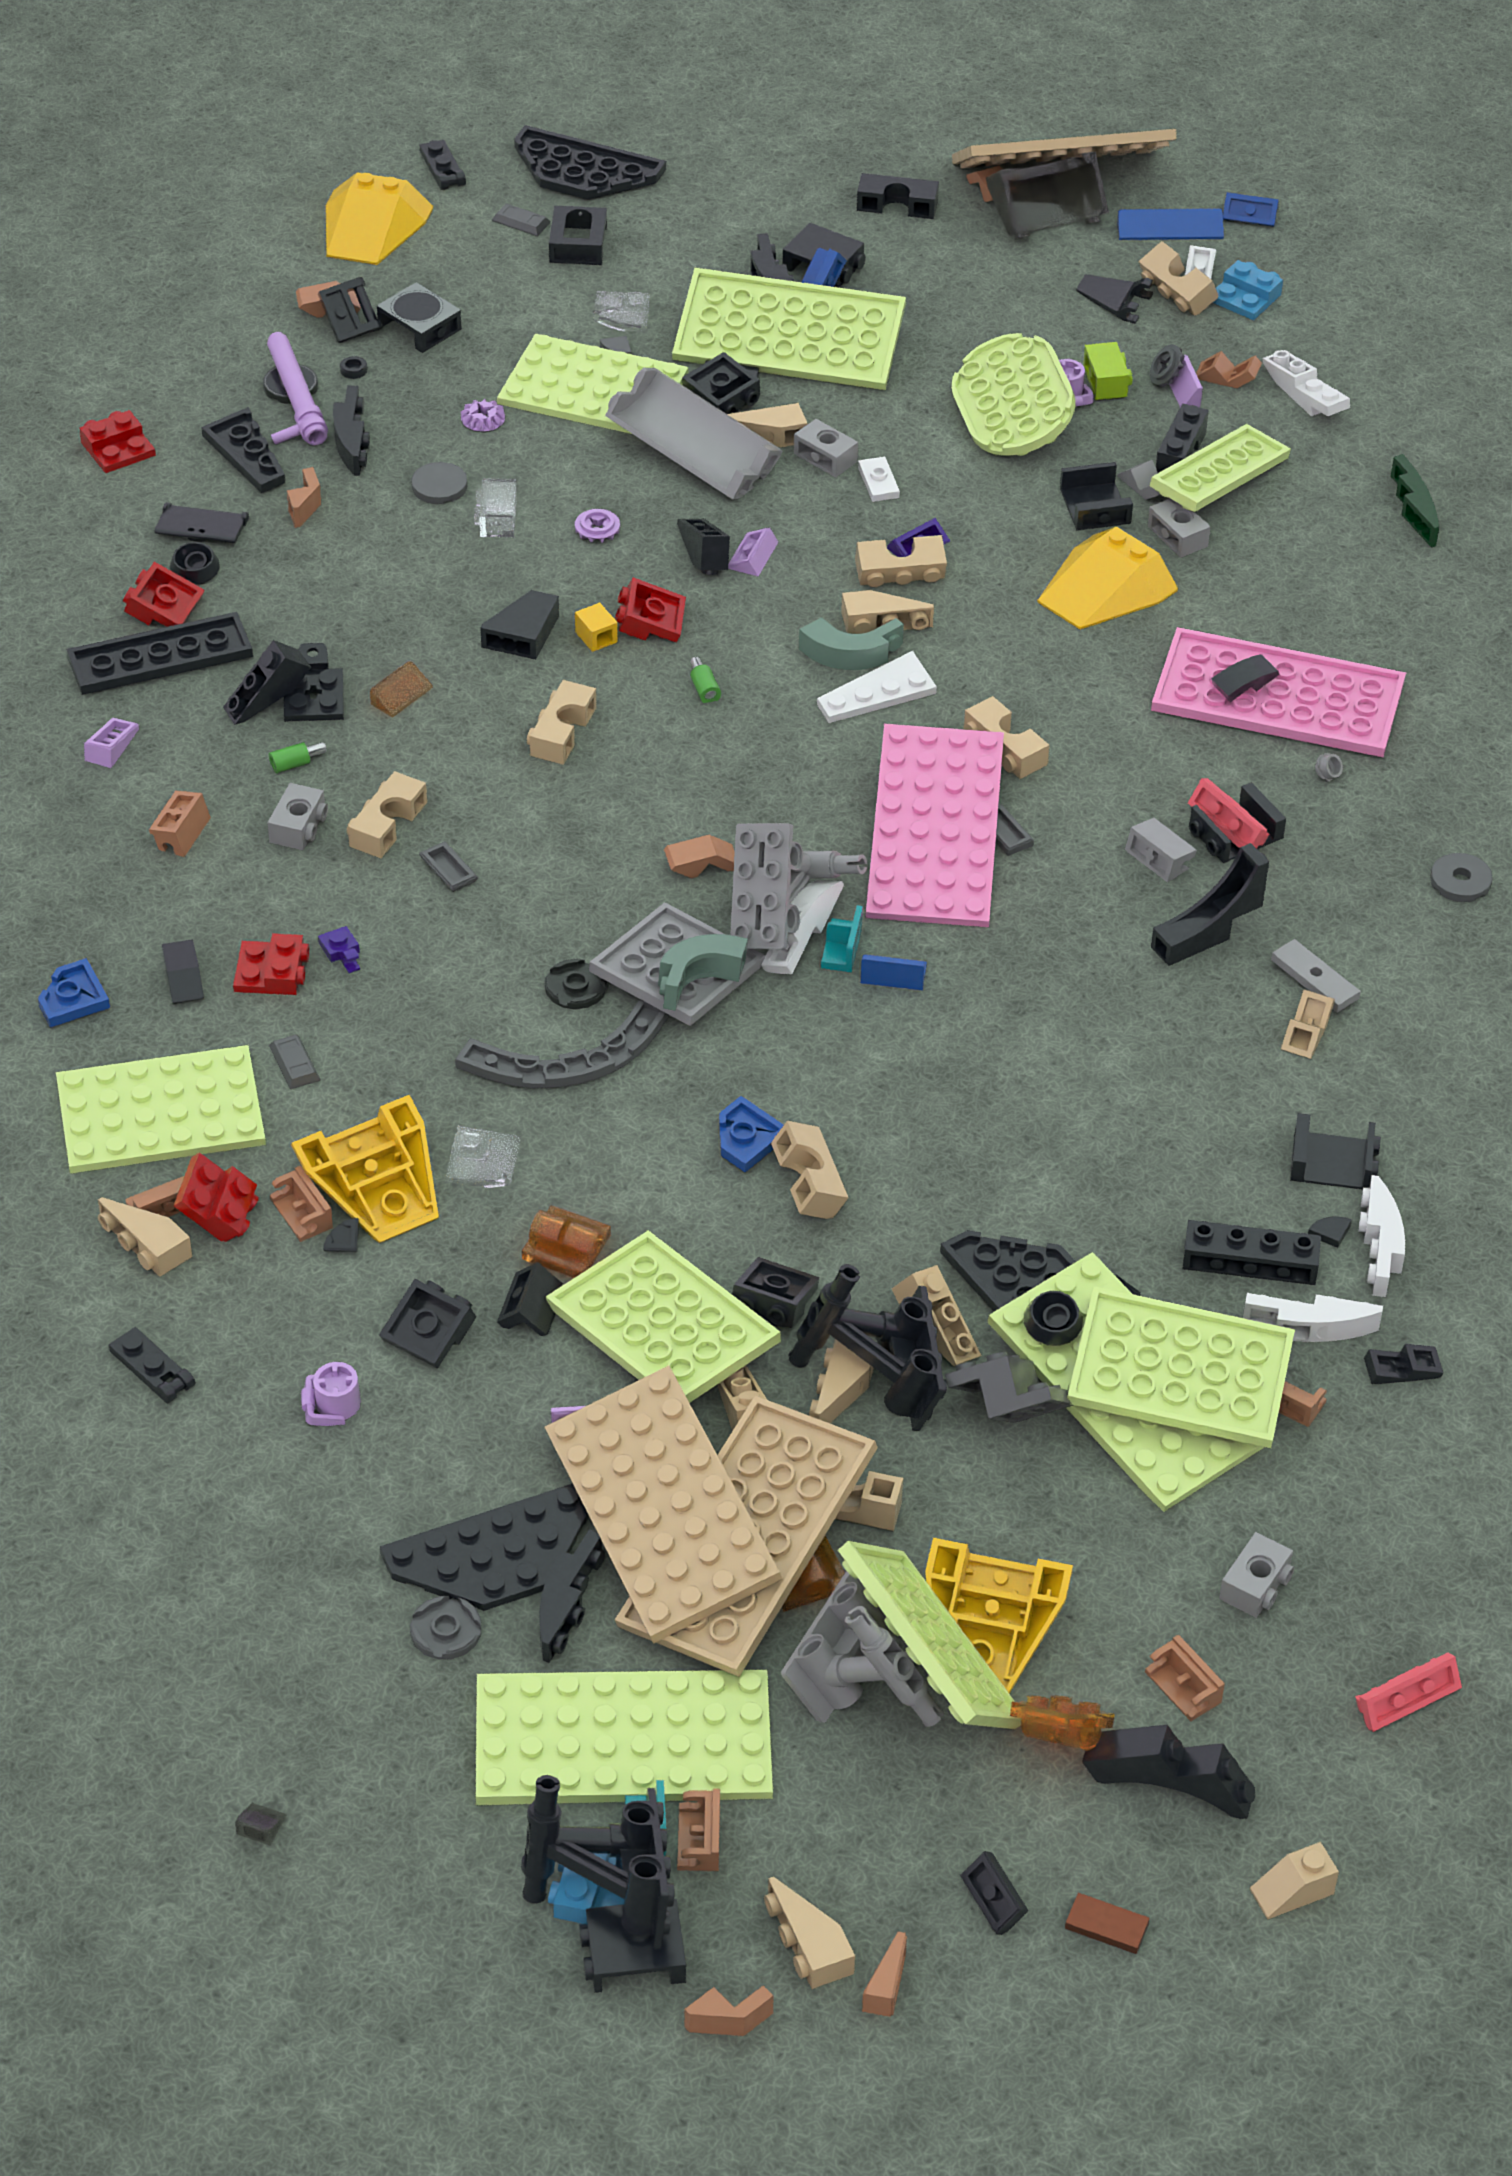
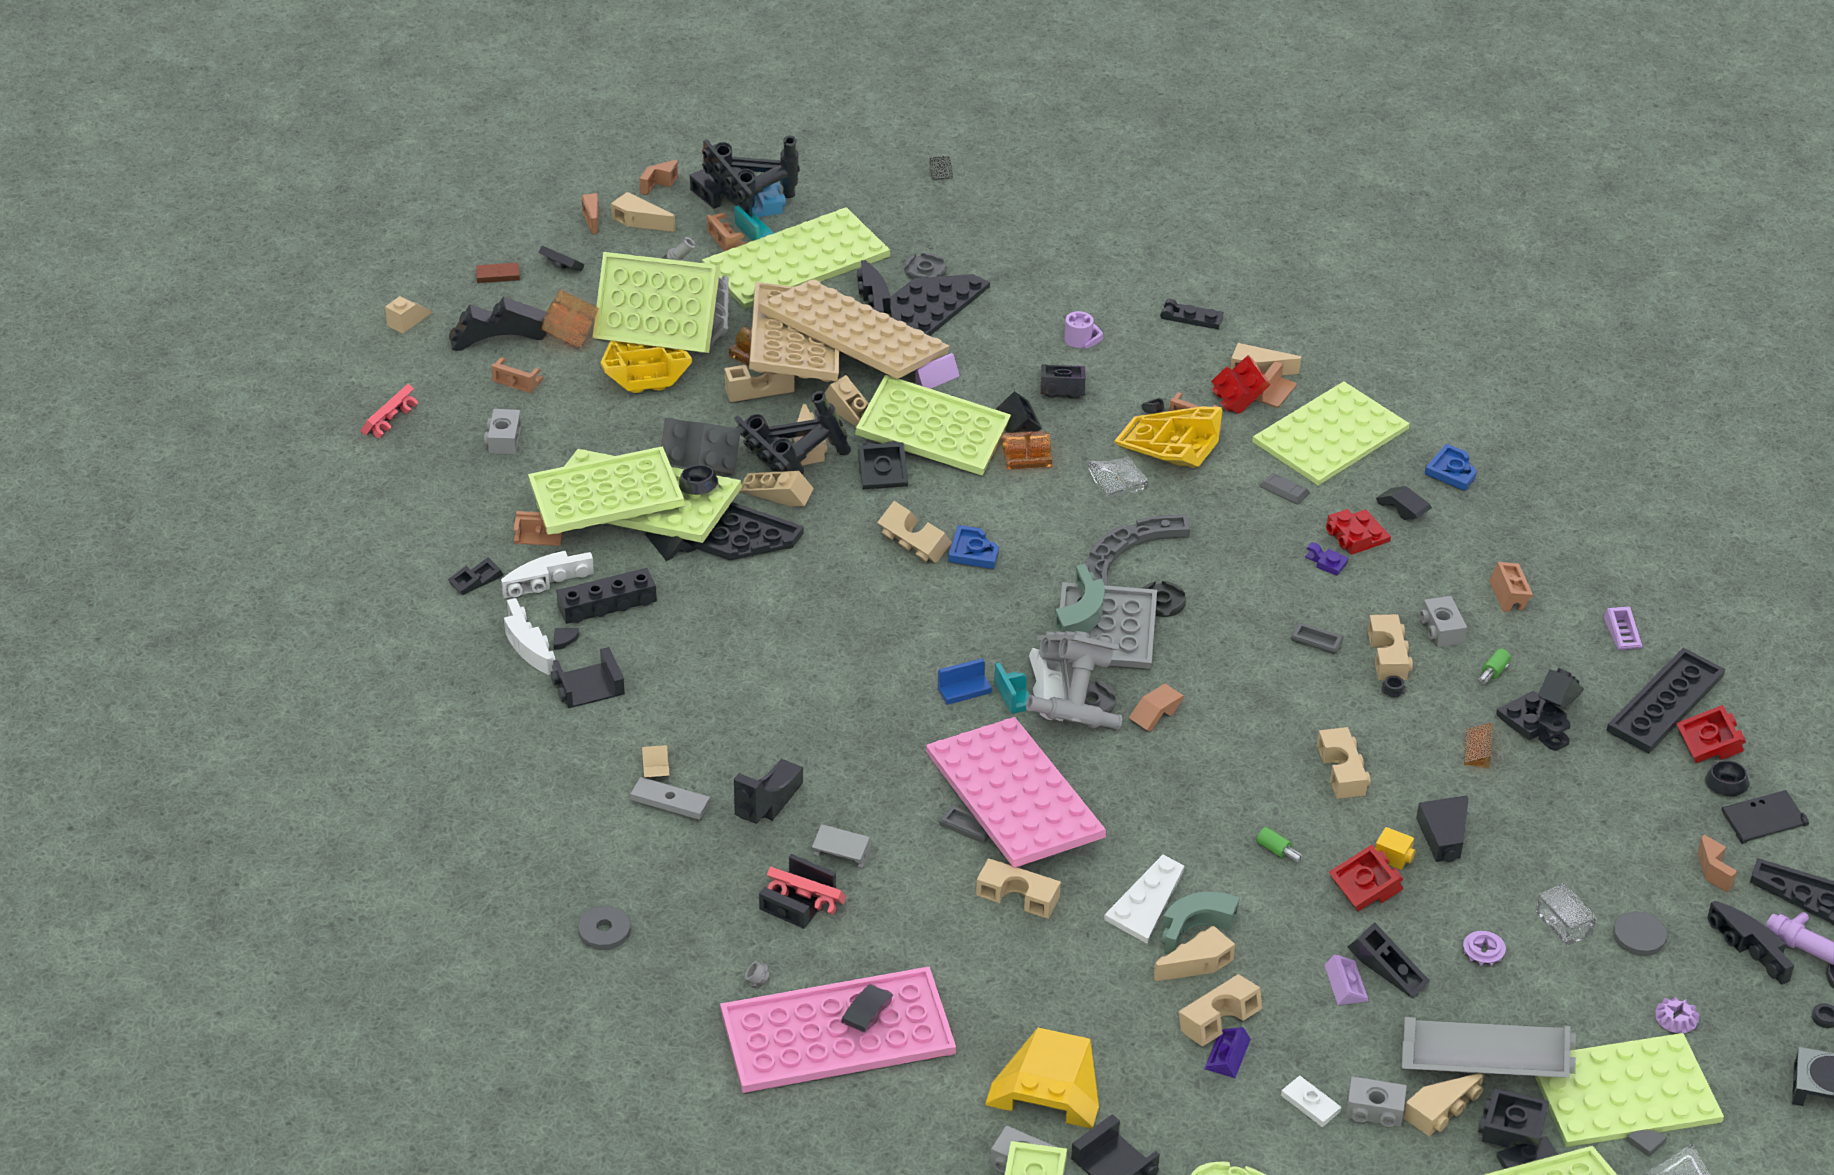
camera: 150 degrees right, 5 degrees down
(426, 775) = (1393, 686): none -> black plate

